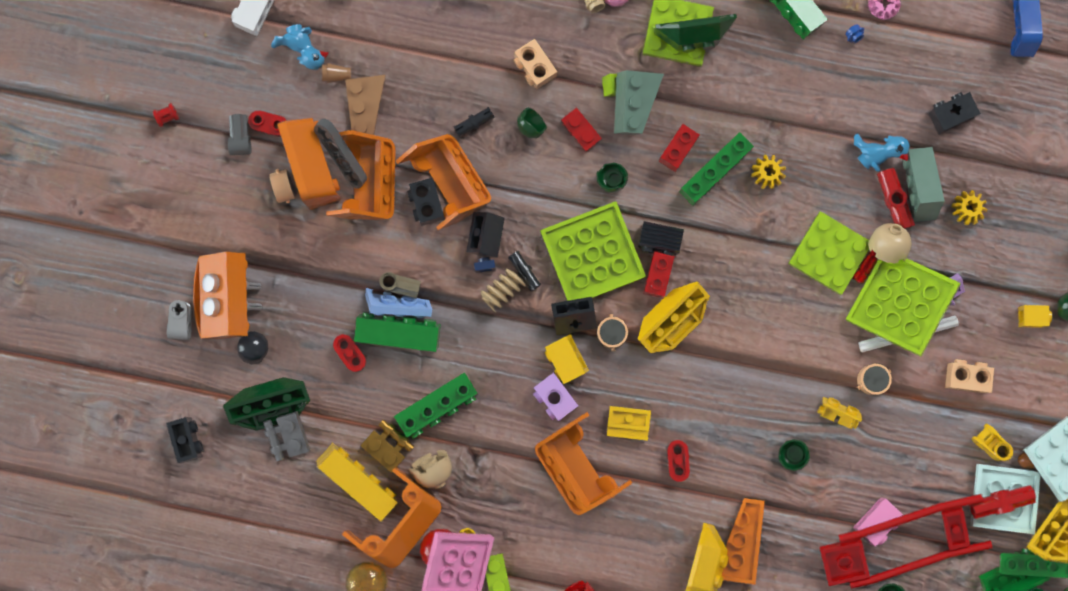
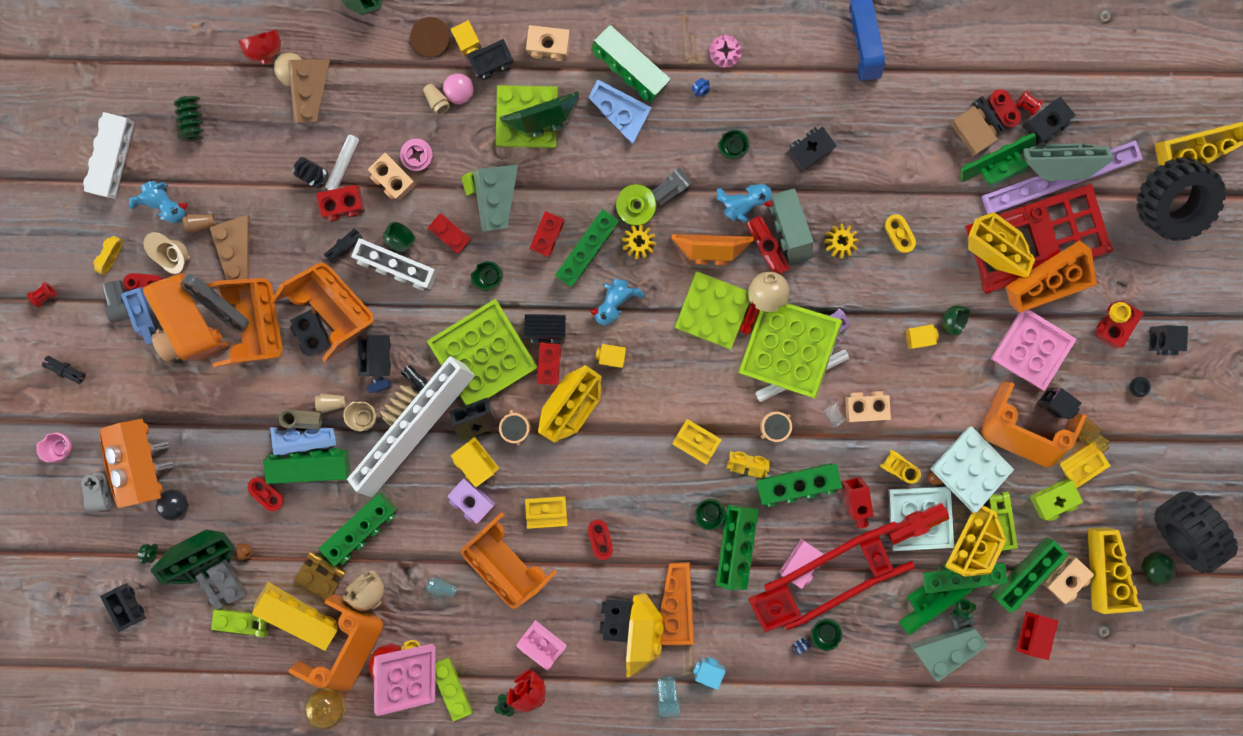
camera: 10 degrees left, 5 degrees up
(148, 267) = (54, 448): none -> bright pink hair
(171, 192) = (63, 370): none -> black pin
(219, 390) = (147, 553): none -> dark green plate
(244, 83) = (106, 259): none -> yellow plate
(261, 151) = (140, 313): none -> medium blue hinge
(297, 478) = (238, 622): none -> lime plate
(298, 95) = (166, 252): none -> tan piece
(316, 407) = (244, 551): none -> dark orange hinge
(429, 273) = (329, 402): none -> tan cone
(456, 44) = (310, 172): none -> black gear
(460, 292) = (360, 416): none -> tan hair
(480, 74) = (340, 197): none -> red brick
(487, 42) = (342, 162): none -> white axle
(505, 479) = (439, 587): none -> clear light blue cone
(510, 312) = (410, 427): none -> white brick
(523, 148) = (391, 262): none -> white brick
(567, 39) = (407, 153): none -> bright pink gear
(600, 557) = (541, 645): none -> bright pink bracket
(680, 544) = (616, 618): none -> black brick
(721, 278) = (611, 355): none -> yellow brick
(737, 220) = (616, 295): none -> dark azure animal
(767, 125) = (627, 199): none -> lime dish
(772, 40) = (620, 109): none -> light blue wing
(792, 380) = (696, 441): none -> yellow plate
(813, 123) = (675, 184): none -> dark grey piece
(816, 493) = (737, 547): none -> green brick
(838, 191) = (711, 248): none -> orange wedge
(878, 94) = (734, 145): none -> dark green hair
(920, 436) = (830, 484): none -> green brick
(934, 379) = (834, 415): none -> clear bush
(945, 469) = (858, 501): none -> red torso
(1031, 211) = (901, 233): none -> yellow plate

